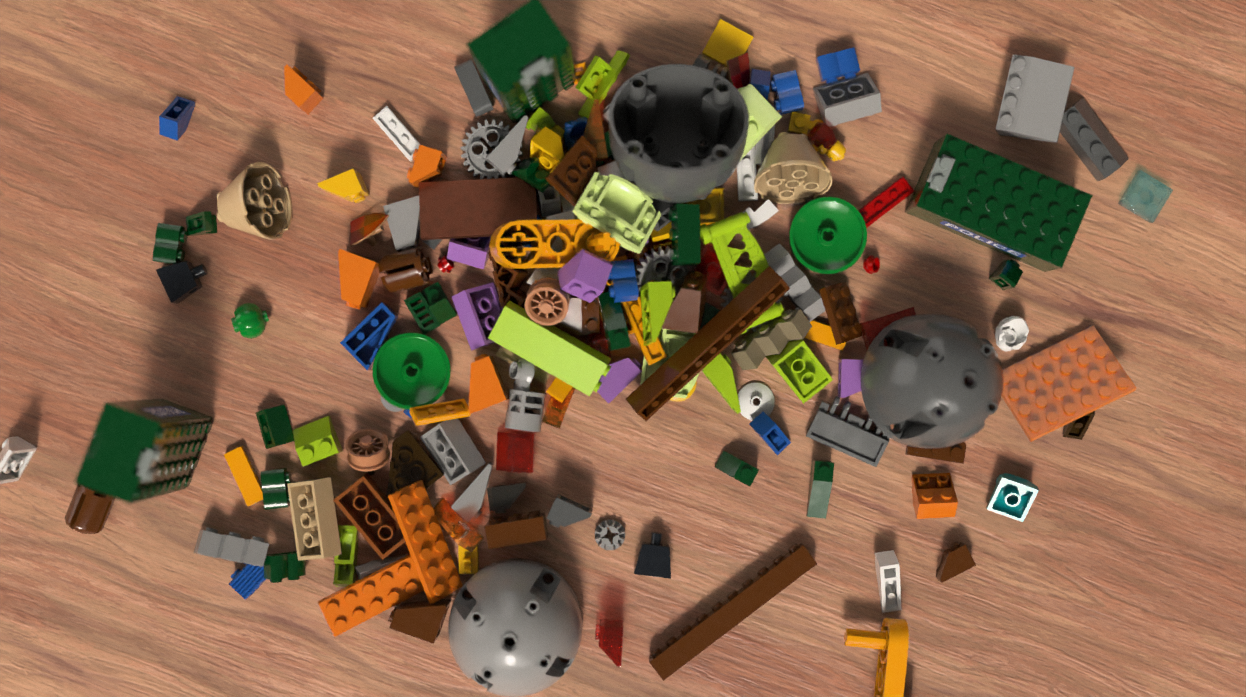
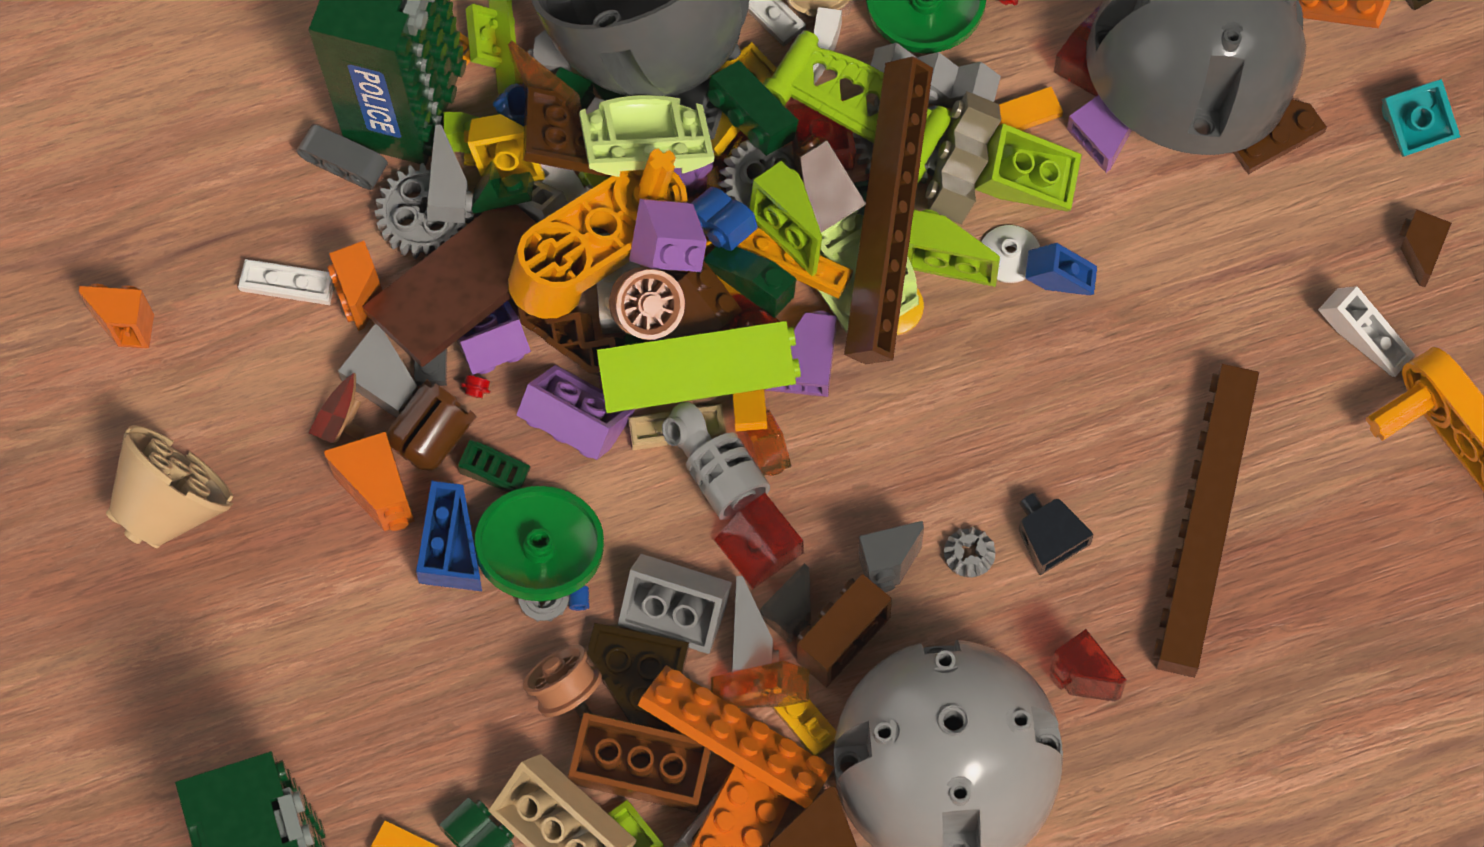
camera: 30 degrees left, 20 degrees down
(169, 243) = (85, 636): dark green brick -> none
(181, 280) = (136, 667): black torso -> none
(201, 223) = (109, 577): dark green slope -> none
(249, 320) = (270, 648): green plant -> none
(275, 426) = (410, 760): dark green panel -> none
(316, 441) = (485, 733): lime slope -> none
(346, 185) = (269, 385): yellow slope -> none
(439, 303) = (508, 438): dark green slope -> none
(439, 412) = (618, 559): light orange tile -> none
(485, 384) = (652, 482): orange slope -> none
(736, 468) = (1058, 343): dark green slope -> none
(820, 488) = (1180, 287): slope -> none
(841, 312) = (1021, 66): reddish brown plate -> none
(848, 434) = (1157, 200): dark grey hinge -> none
(933, 495) = (1327, 189): orange slope -> none

